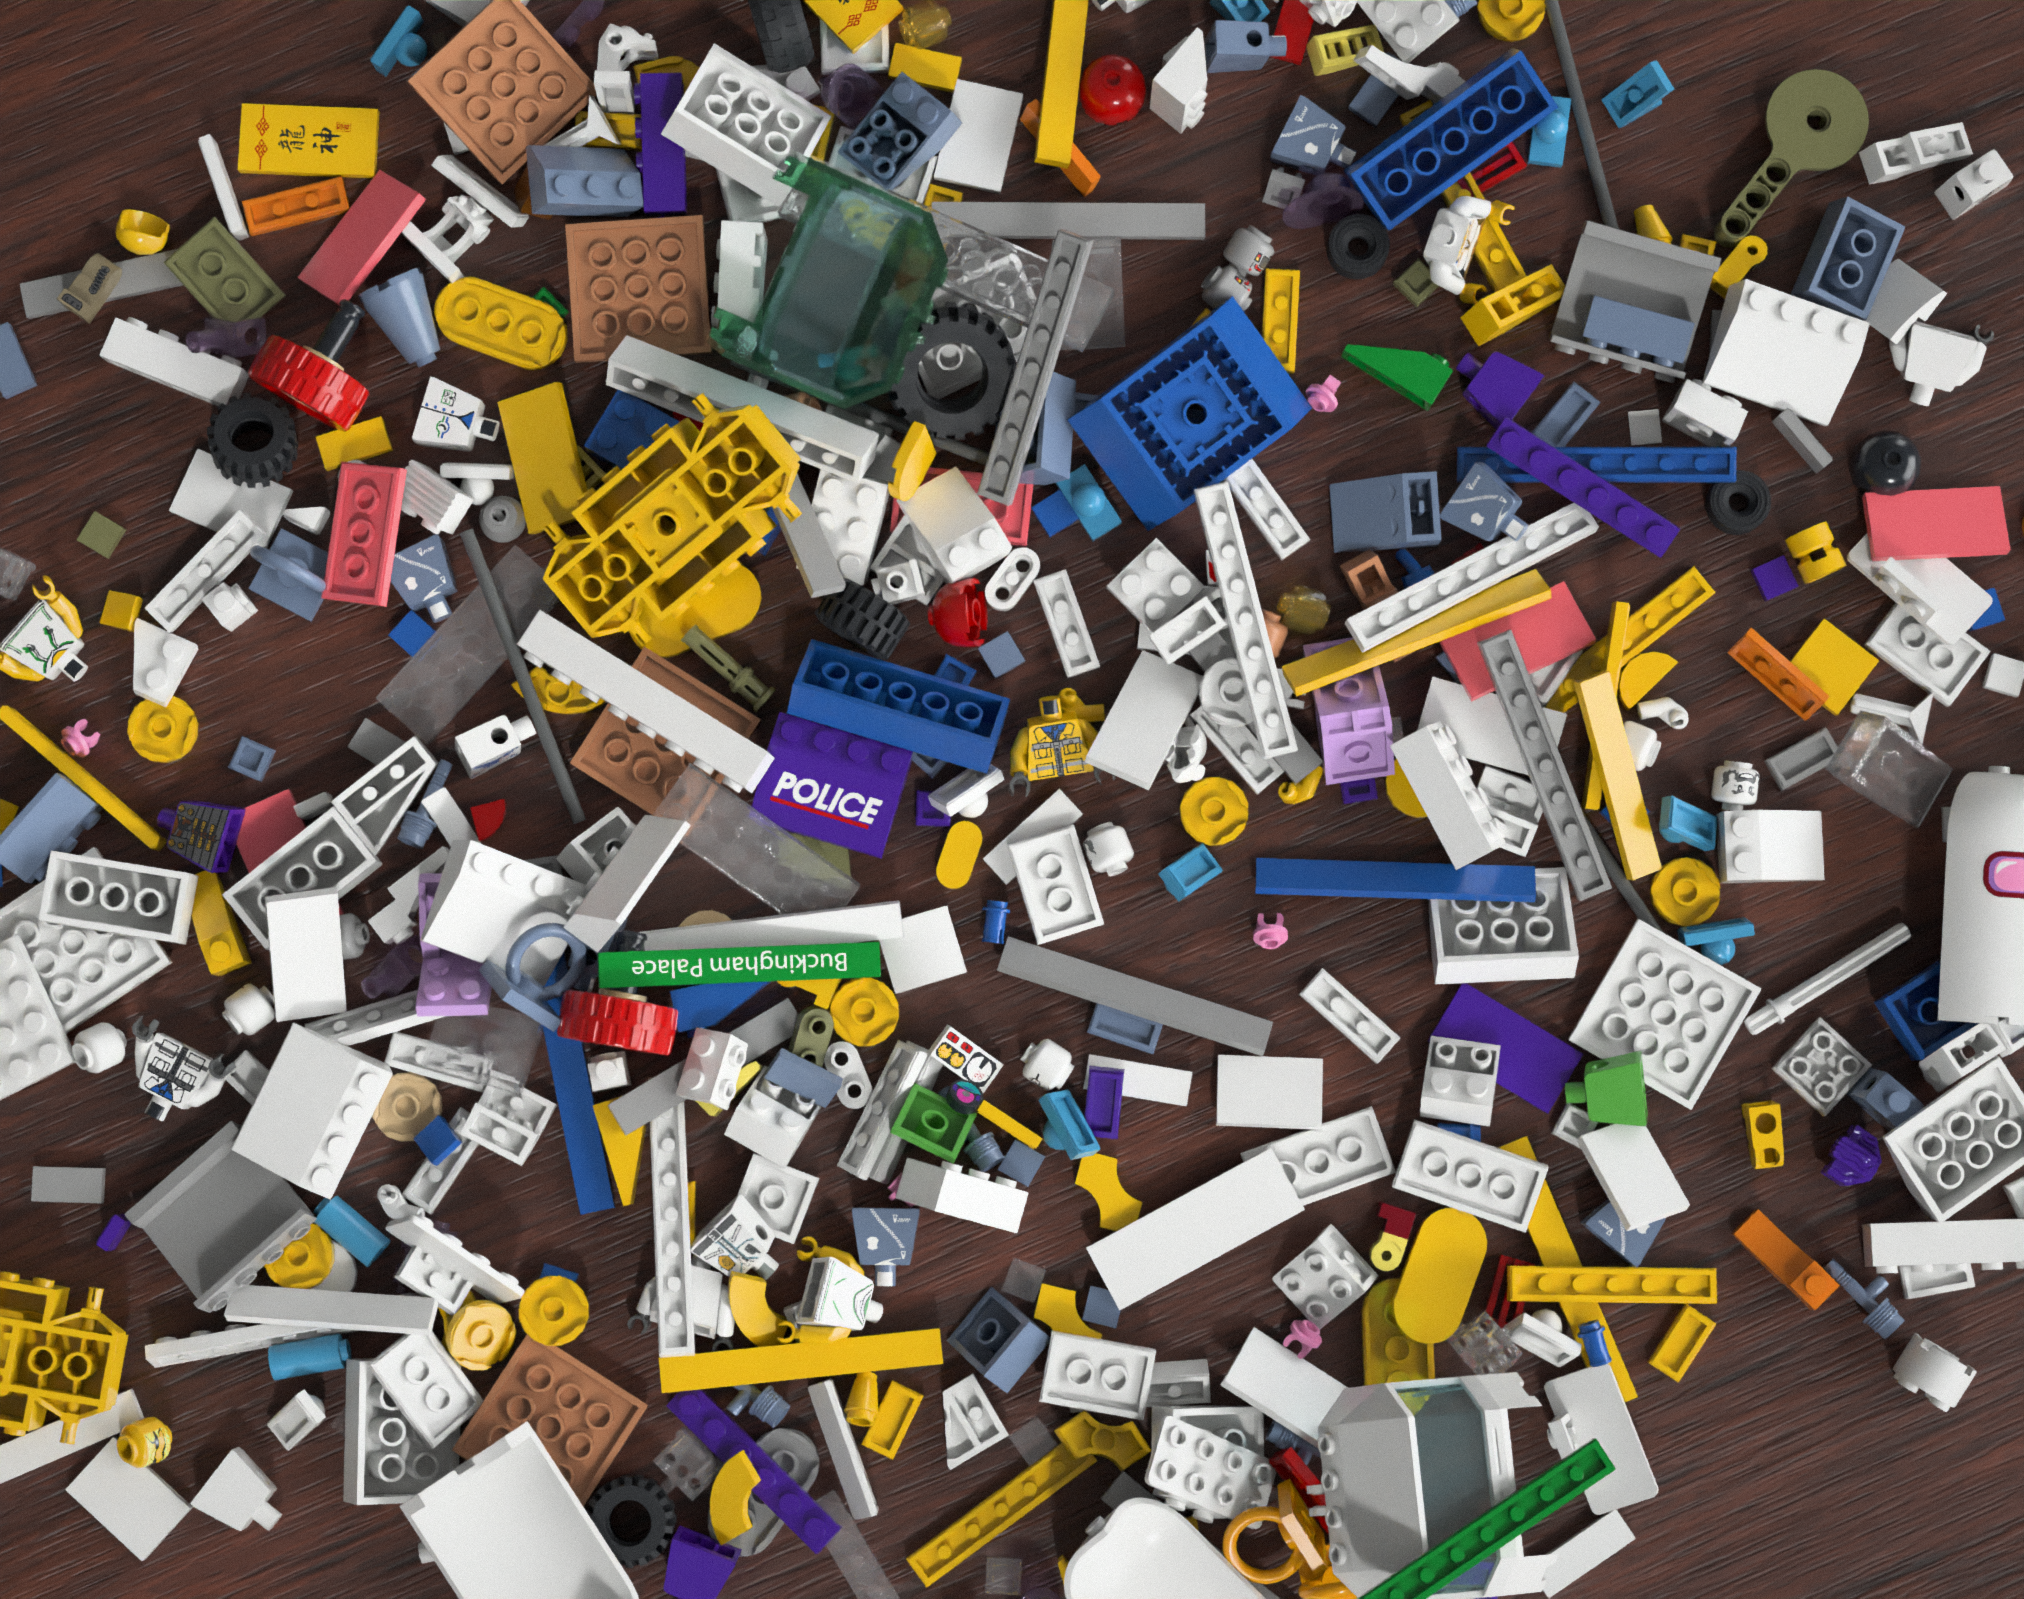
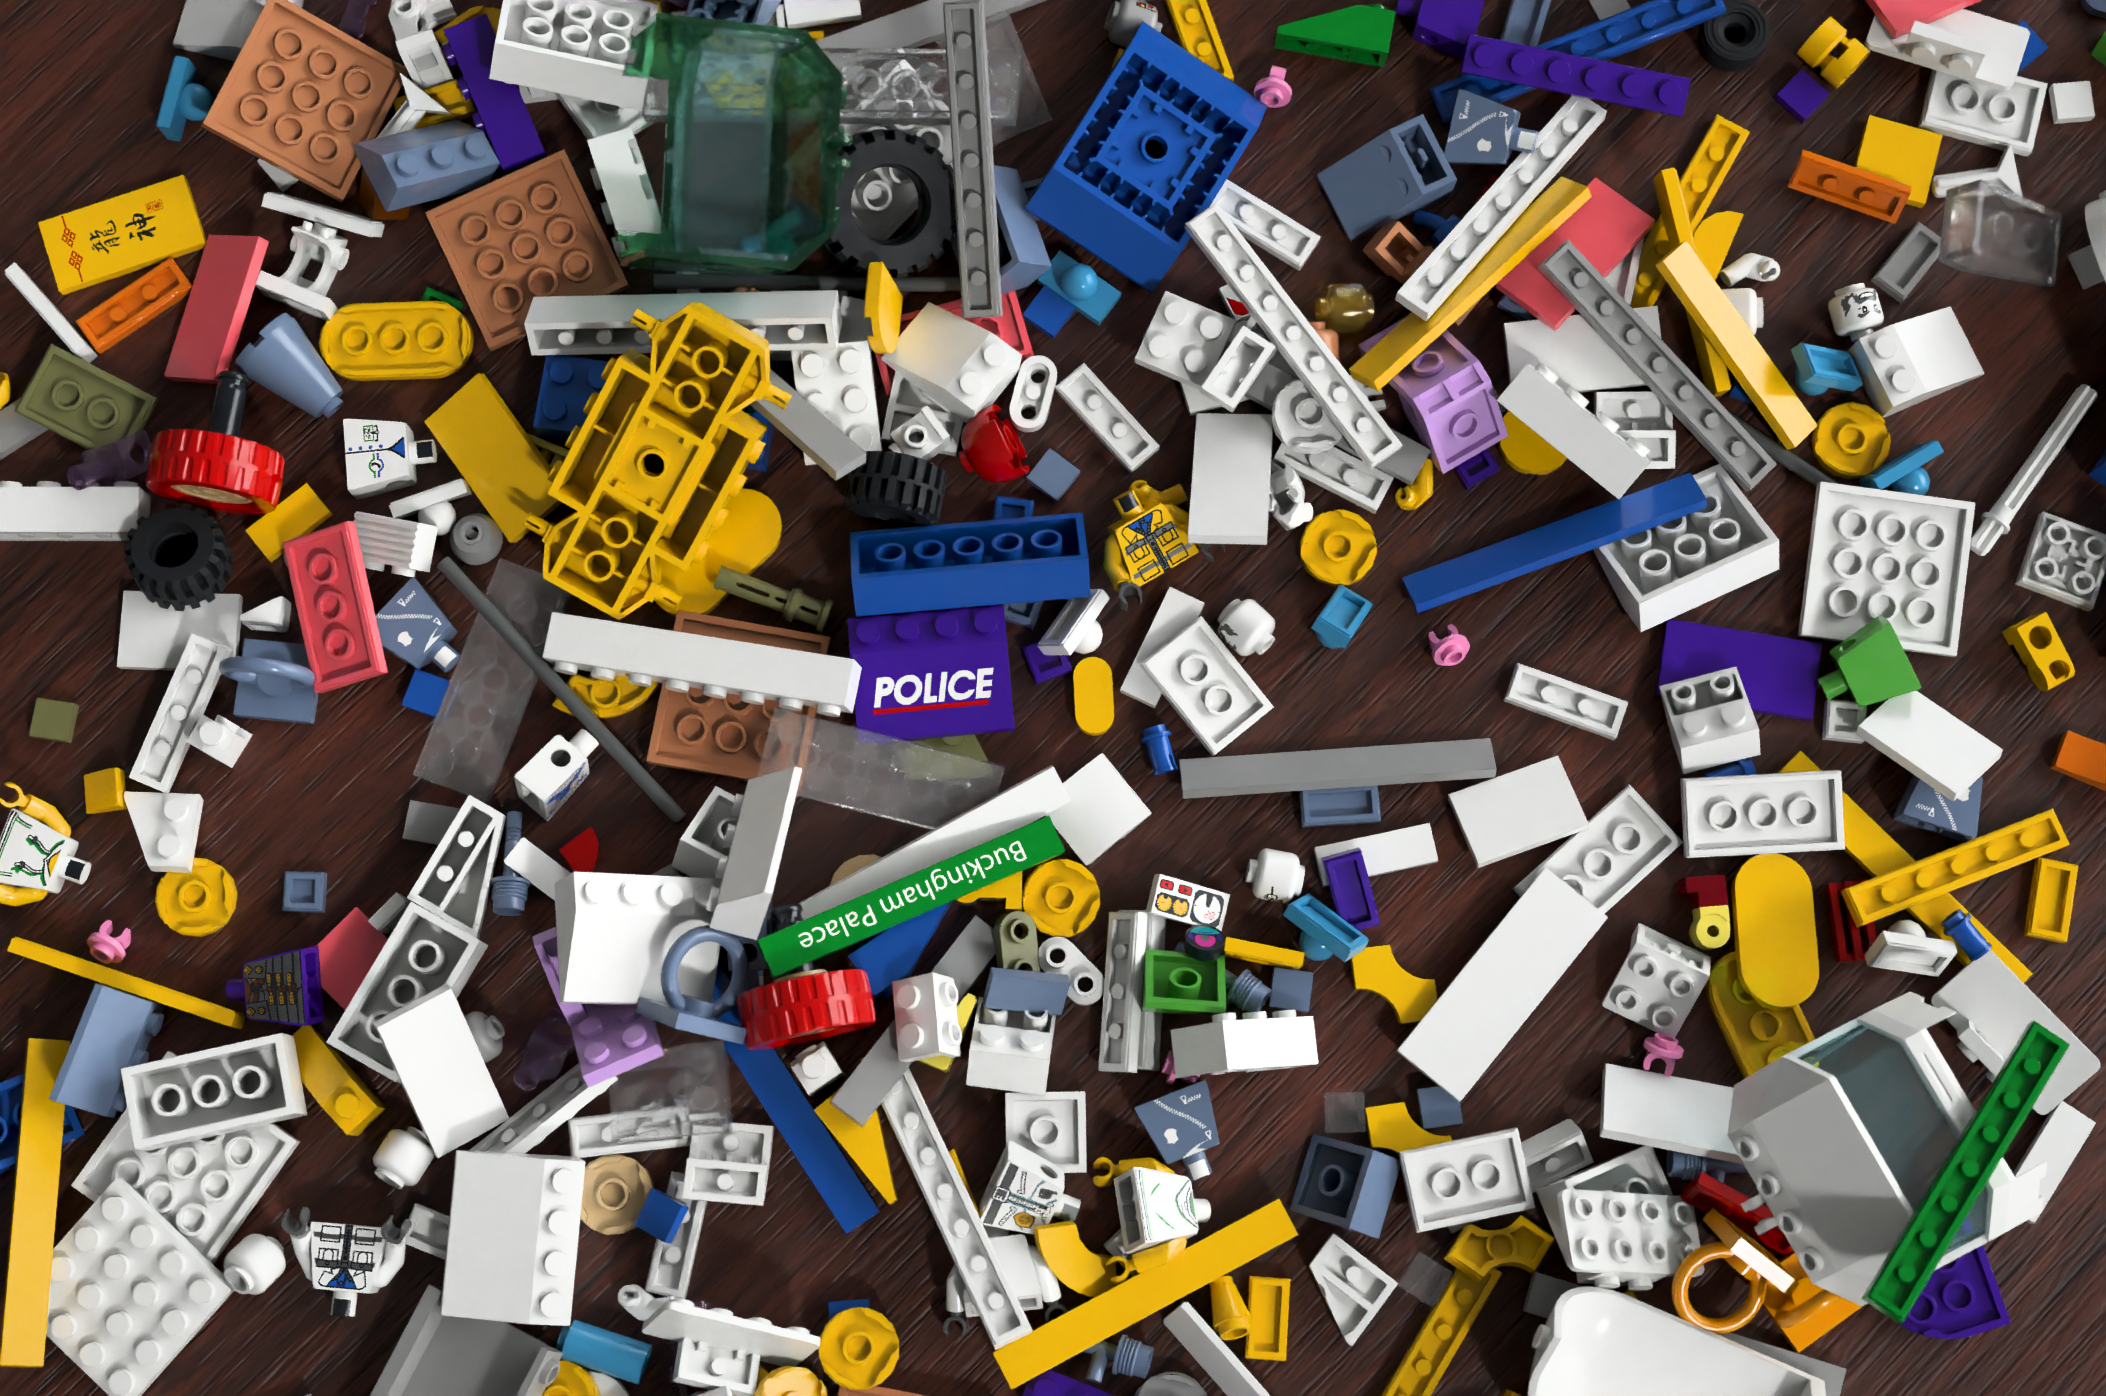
camera: 25 degrees left, 5 degrees down
(397, 919) = (525, 997): white slope -> none
(1485, 1346) = (1855, 984): clear piece -> none

